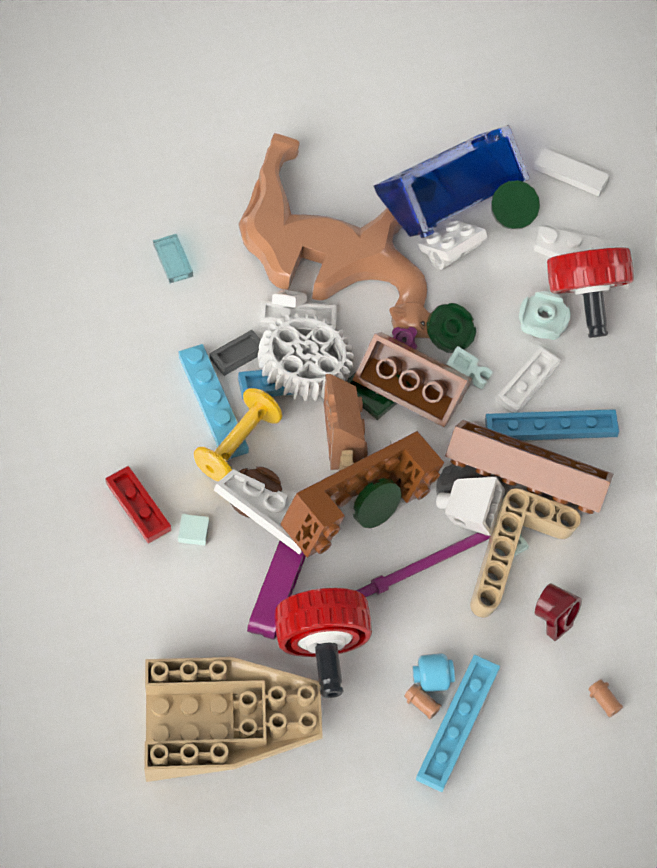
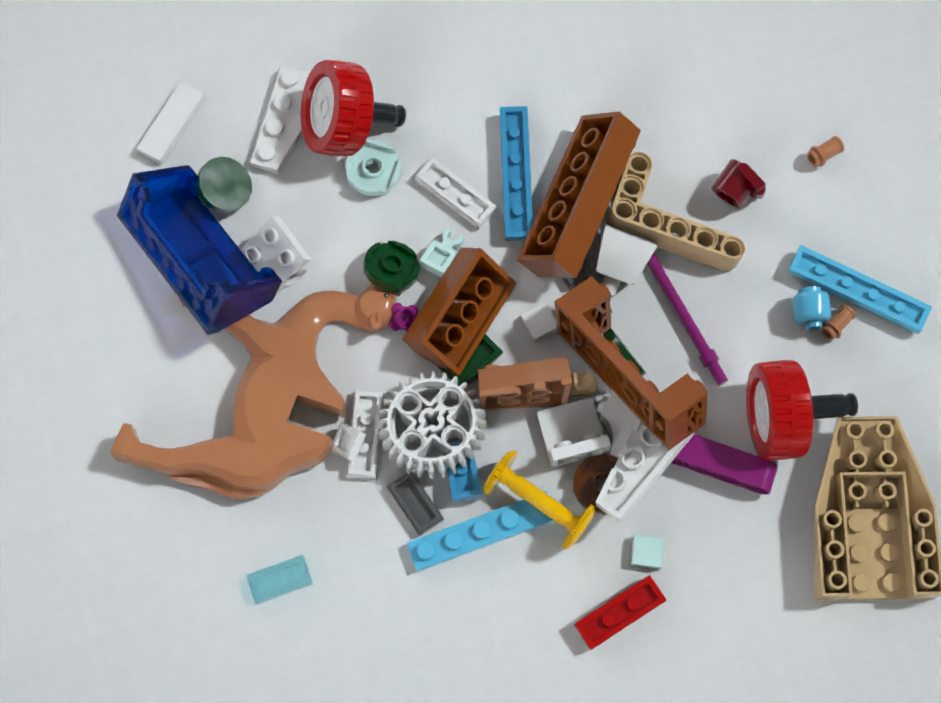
camera: 85 degrees left, 15 degrees up
(300, 465) = (572, 432): none -> white bracket

